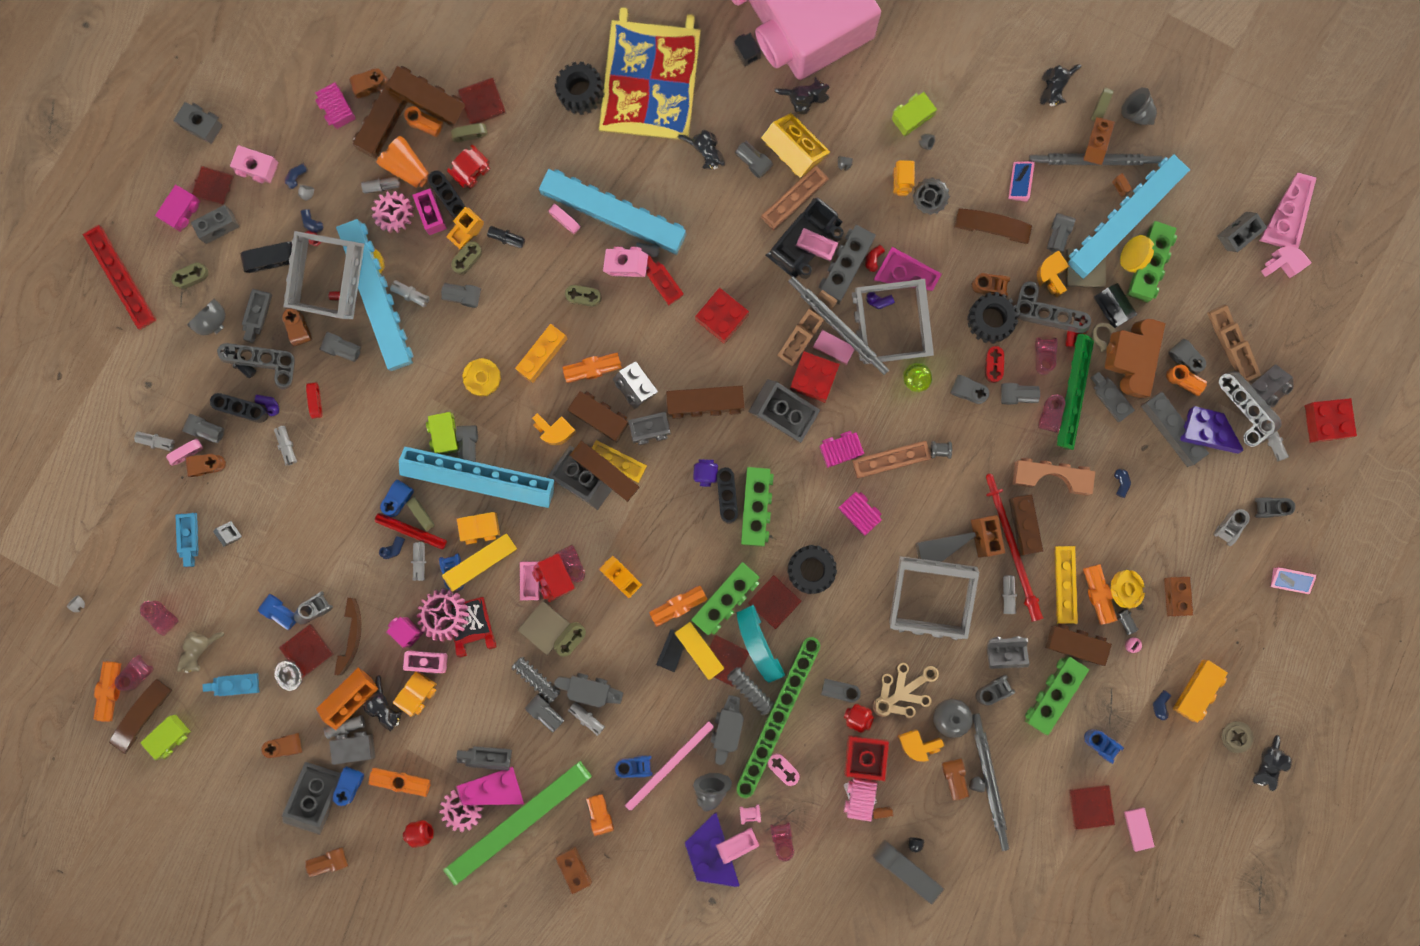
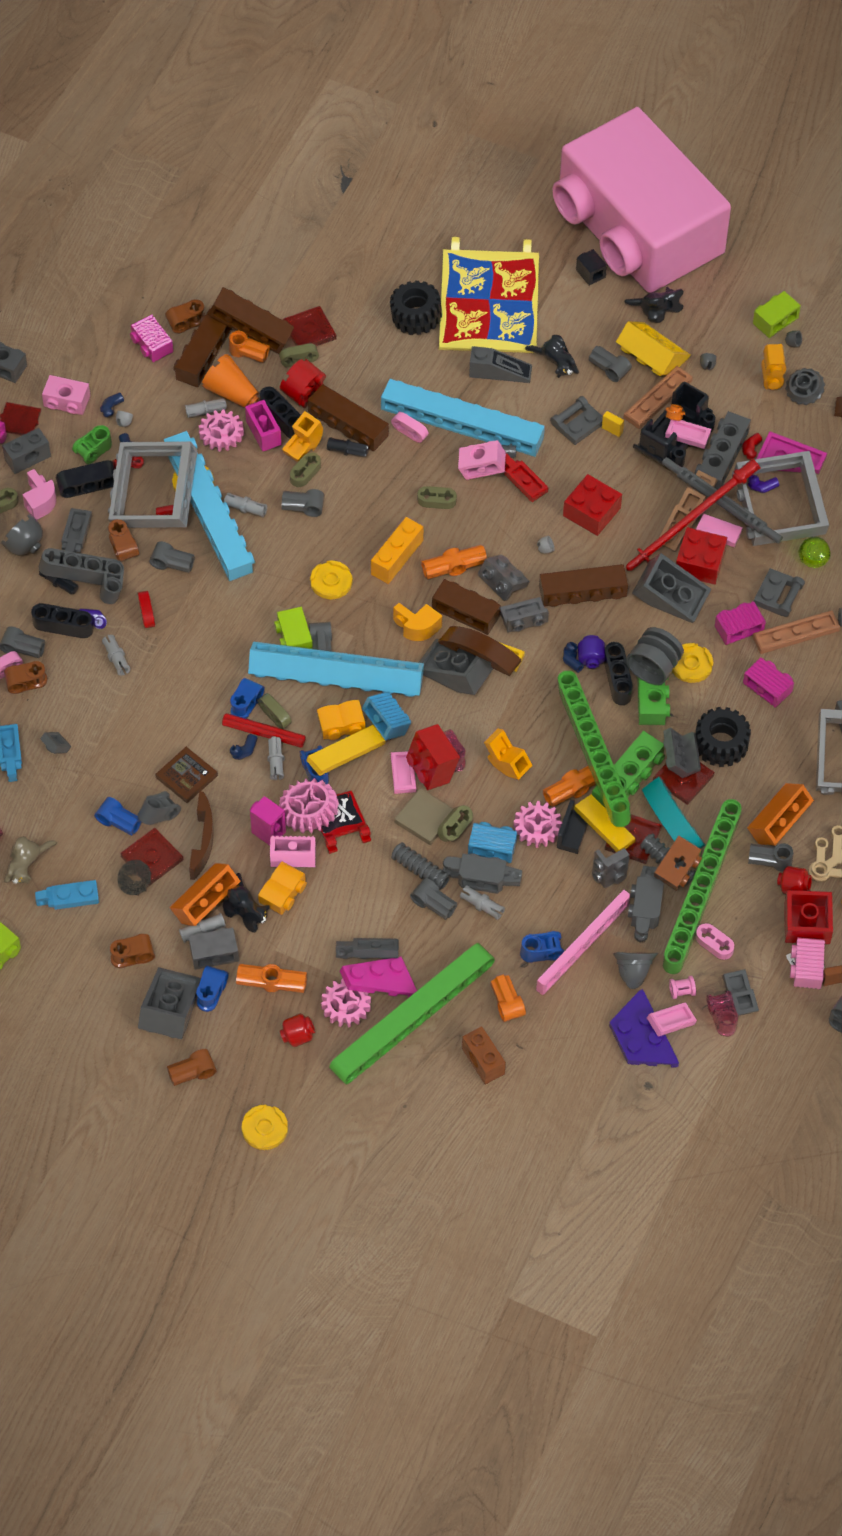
camera: 10 degrees left, 25 degrees down
(228, 275) = (41, 498): none -> bright pink brick
(274, 220) = (91, 444): none -> bright green piece
(340, 571) = (186, 774): none -> reddish brown tile
(385, 919) = (264, 1127): none -> yellow tile
(508, 205) = (348, 417): none -> reddish brown brick
(518, 527) = (386, 715): none -> dark azure brick
(600, 660) = (492, 841): none -> dark azure brick
(642, 636) = (527, 822): none -> bright pink gear
(651, 156) = (496, 365): none -> dark grey slope
(677, 354) = (545, 545): none -> light grey hinge
(687, 472) = (570, 657): none -> dark blue arm
(700, 587) = (594, 749): none -> bright green beam
(704, 700) = (610, 869): none -> flat silver bracket
(723, 223) = (580, 426): none -> dark grey plate
(749, 227) = (612, 424): none -> yellow tile
(758, 495) = (655, 656): none -> dark grey wheel
(762, 695) = (683, 851): none -> dark orange brick
(773, 587) = (681, 752): none -> flat silver bracket
(794, 485) = (694, 665): none -> yellow tile
(799, 821) = (742, 994): none -> dark grey slope
(806, 224) = (675, 412): none -> orange plate
(854, 652) = (780, 814): none -> orange brick
(855, 310) = (739, 477): none -> red bar
(874, 414) = (772, 590): none -> dark grey plate

